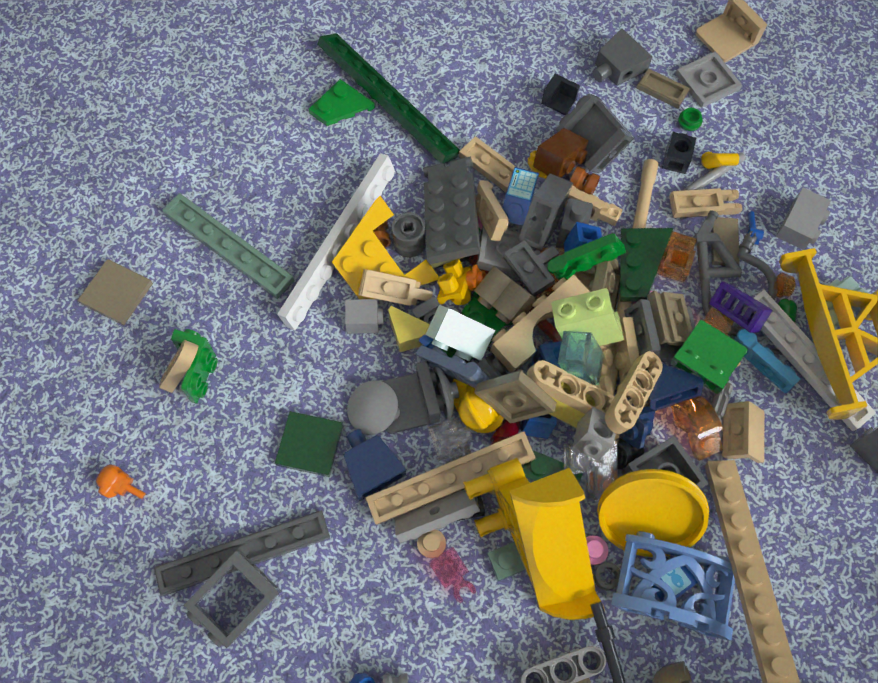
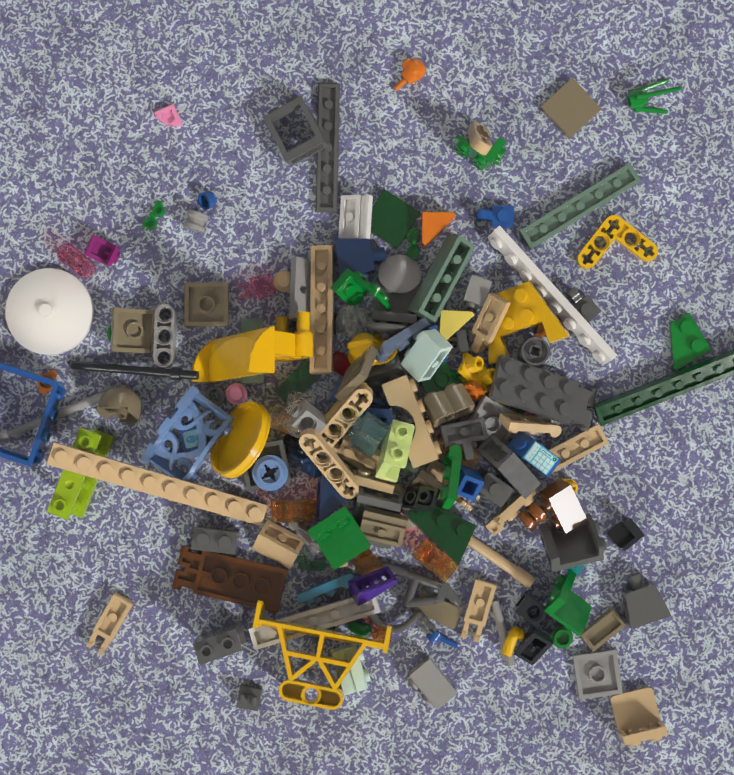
camera: 110 degrees right, 20 degrees up
(85, 225) = (639, 97): none -> green plant
(248, 199) = (618, 236): none -> yellow beam
(265, 325) = (498, 215): none -> blue plate
(302, 390) = (433, 224): none -> orange slope
(321, 483) = (355, 216): none -> white plate
(324, 410) = (412, 237): none -> green piece
(334, 208) = (584, 305): none -> dark grey plate
(361, 355) = (441, 278): none -> sand green brick
(409, 453) = (353, 286): none -> green bracket
(498, 632) = (206, 304): none -> dark tan plate
(623, 283) = (420, 499): none -> black slope
(658, 119) = (566, 605): none -> green bracket
(671, 447) = (268, 483): none -> medium blue gear
(711, 137) = (533, 645): none -> black slope
(748, 385) = (315, 565): none -> clear green arm
(779, 505) = (215, 539): none -> dark grey brick
(812, 474) = (230, 578): none -> reddish brown hinge

